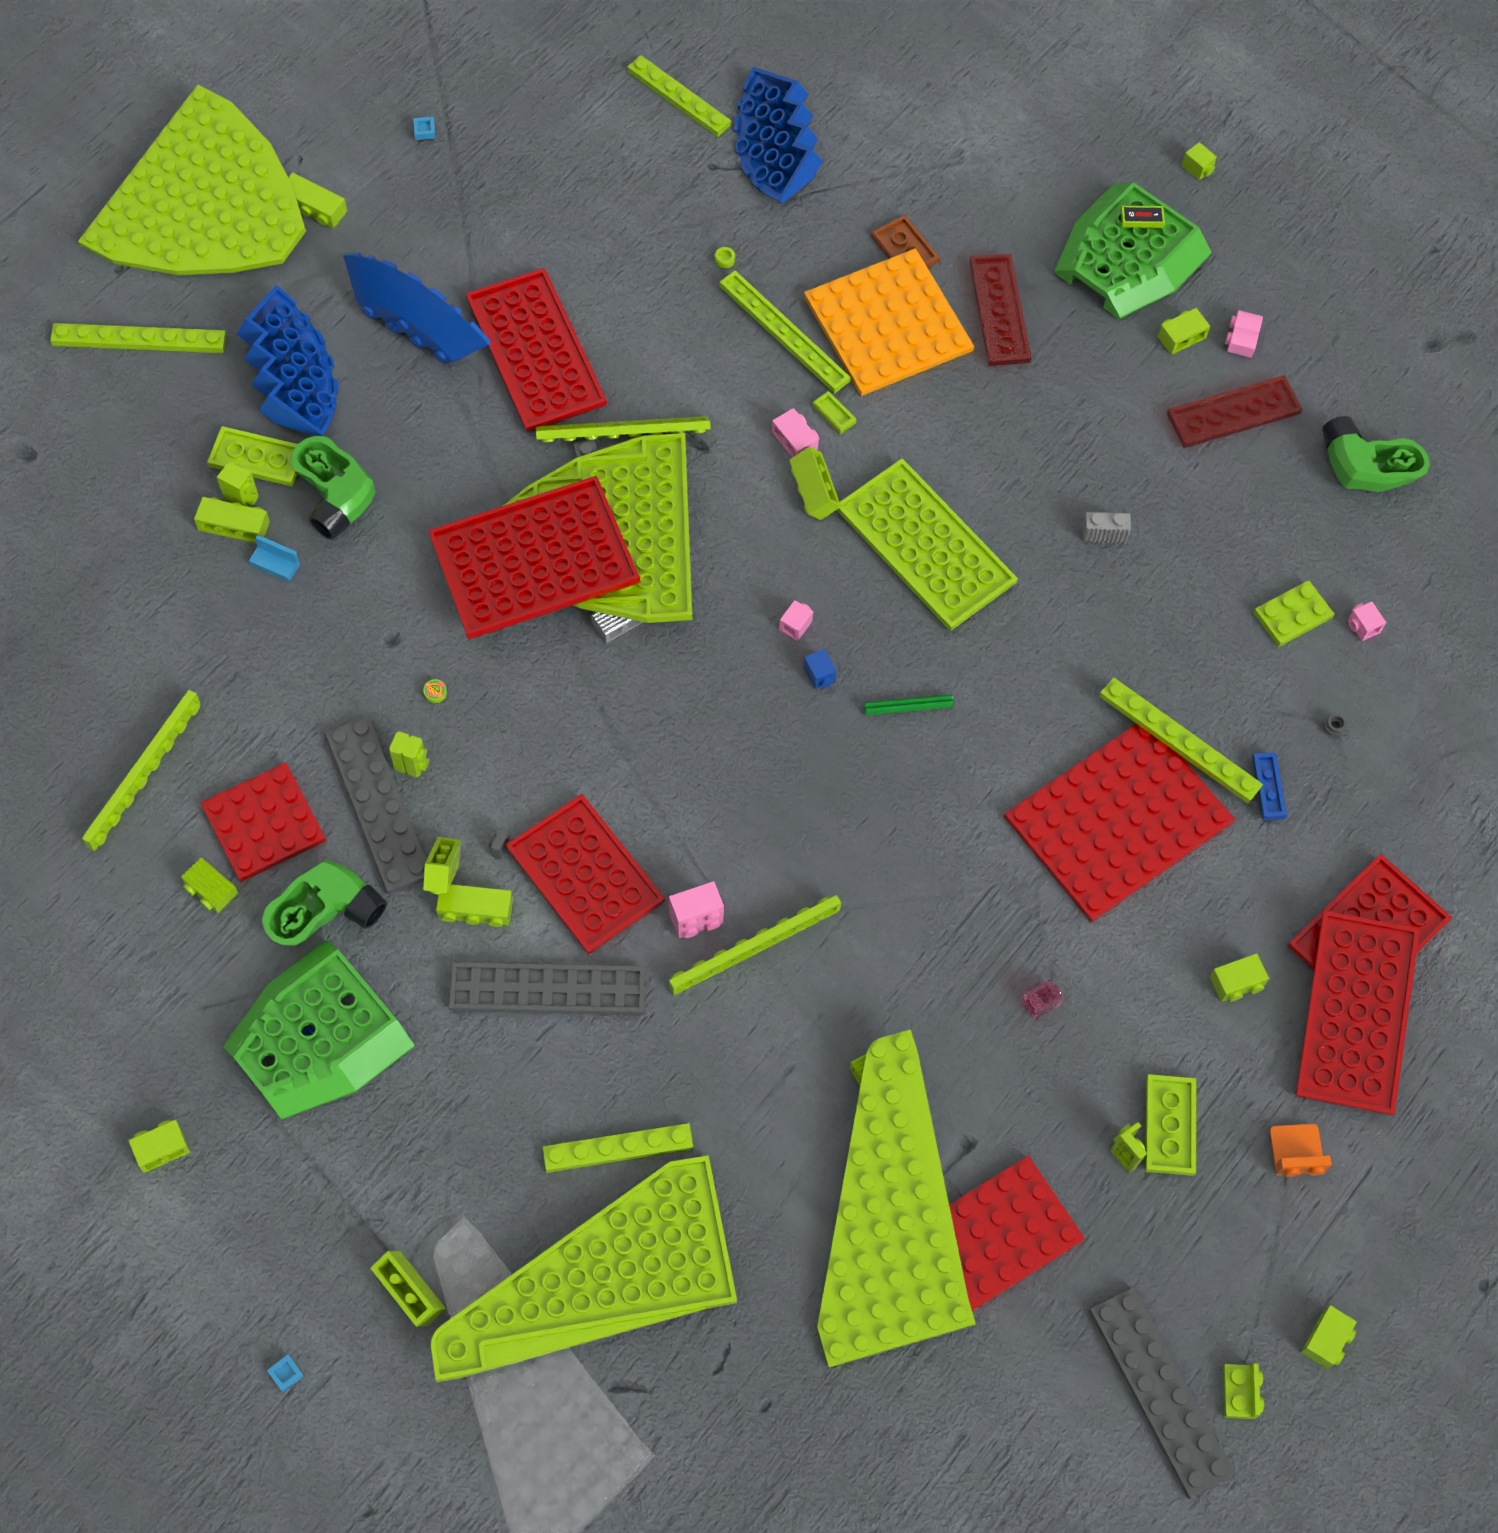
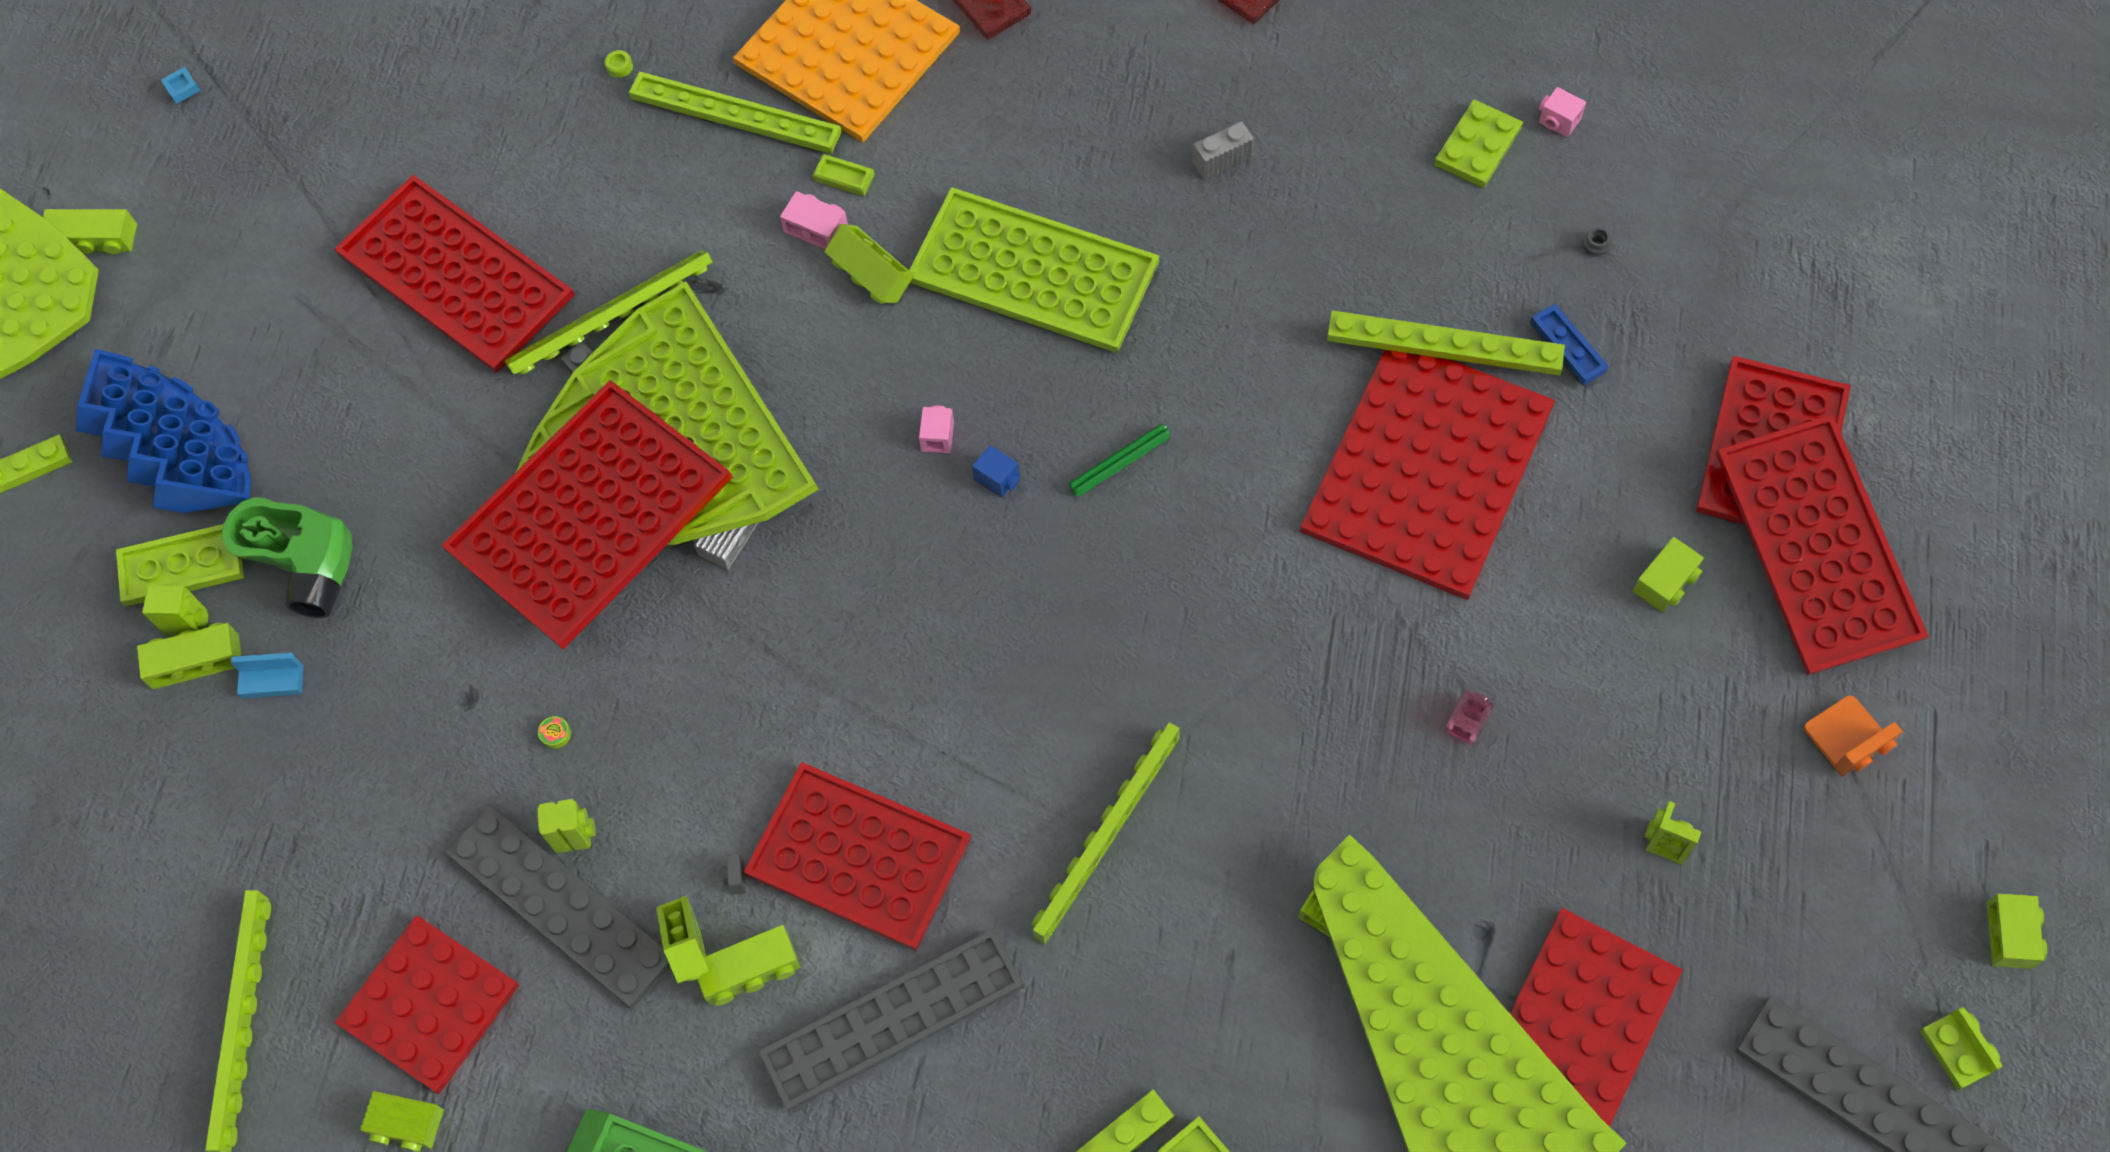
camera: 20 degrees left, 0 degrees up
(317, 899) = (549, 1064): bright green piece -> none
(412, 308) = (279, 294): blue brick -> none
(696, 910) = (1017, 828): bright pink brick -> none
(1170, 1125) = (1696, 782): lime plate -> none

